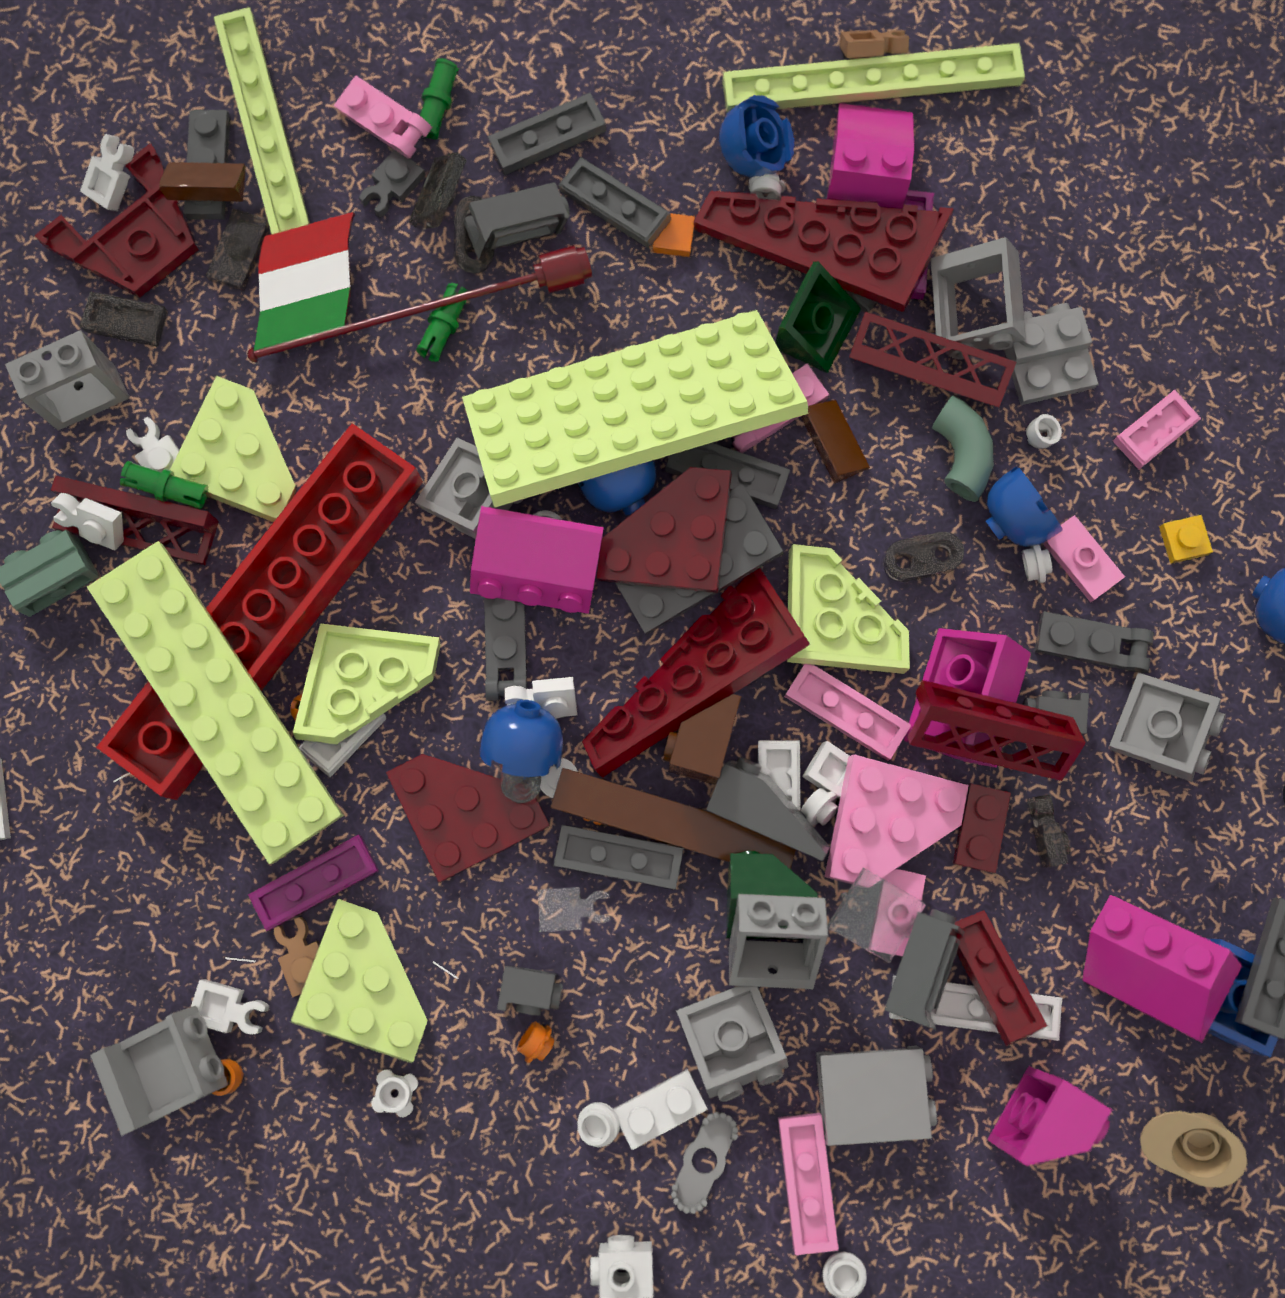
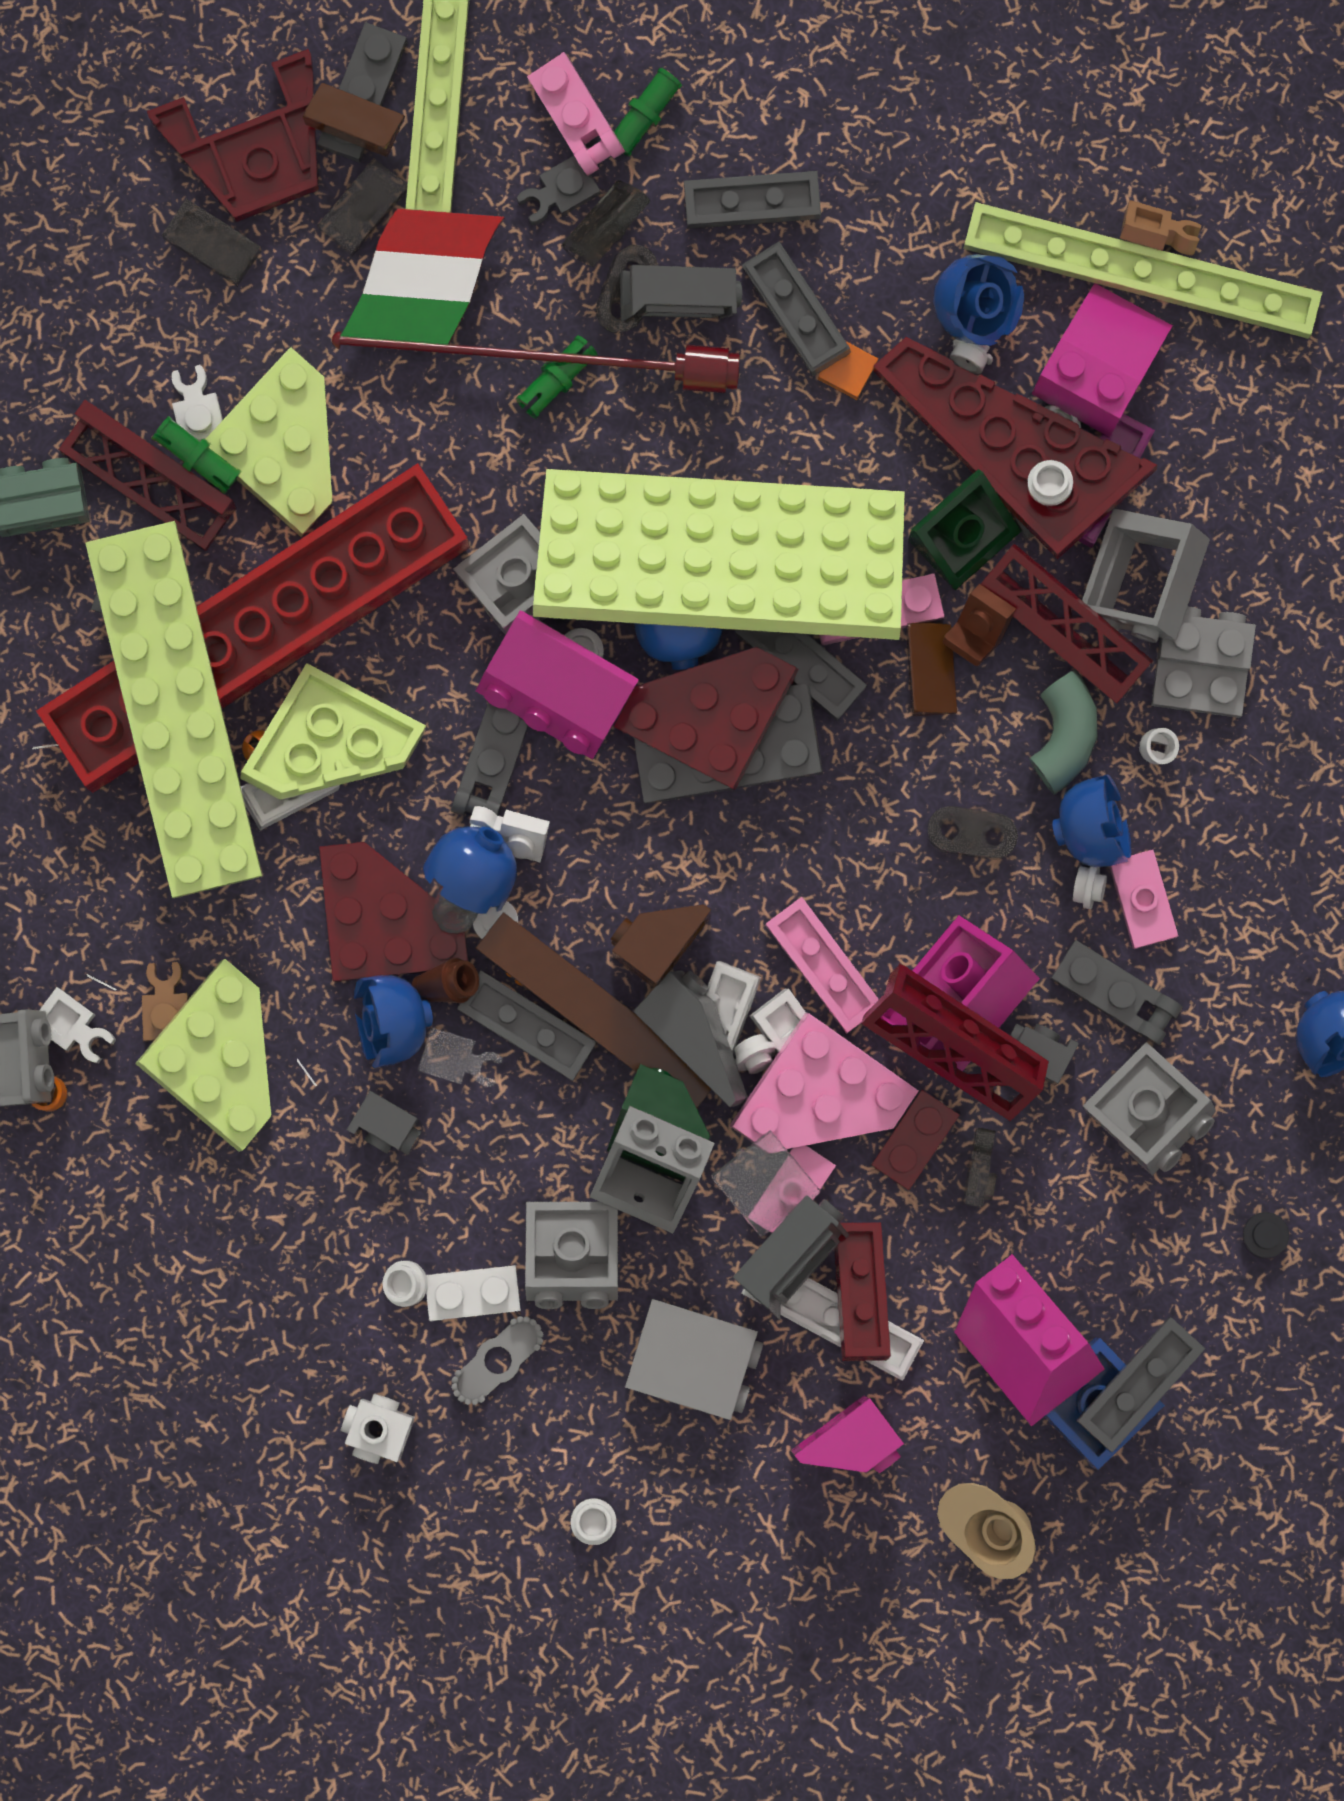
camera: 20 degrees right, 5 degrees up
(54, 384) = (144, 307): light grey window -> none
(95, 521) = (107, 462): white plate -> none
(104, 178) = (246, 72): white plate -> none
(313, 883) = (204, 932): magenta tile -> none
(386, 1102) = (209, 1162): white plate -> none
(501, 896) = (391, 1019): none -> blue cylinder
(536, 1042) = (372, 1179): orange plate -> none
(537, 846) = (448, 982): none -> copper cone
(709, 663) = (695, 862): dark red wing -> none
(807, 1184) = (592, 1419): bright pink plate -> none
(841, 616) = (855, 863): yellowish green plate -> none
(862, 388) = (979, 626): none -> copper bracket
(875, 250) = (1050, 482): none -> white plate
(1156, 429) = (1283, 790): bright pink plate -> none
(1185, 539) = (1263, 920): yellow plate -> none

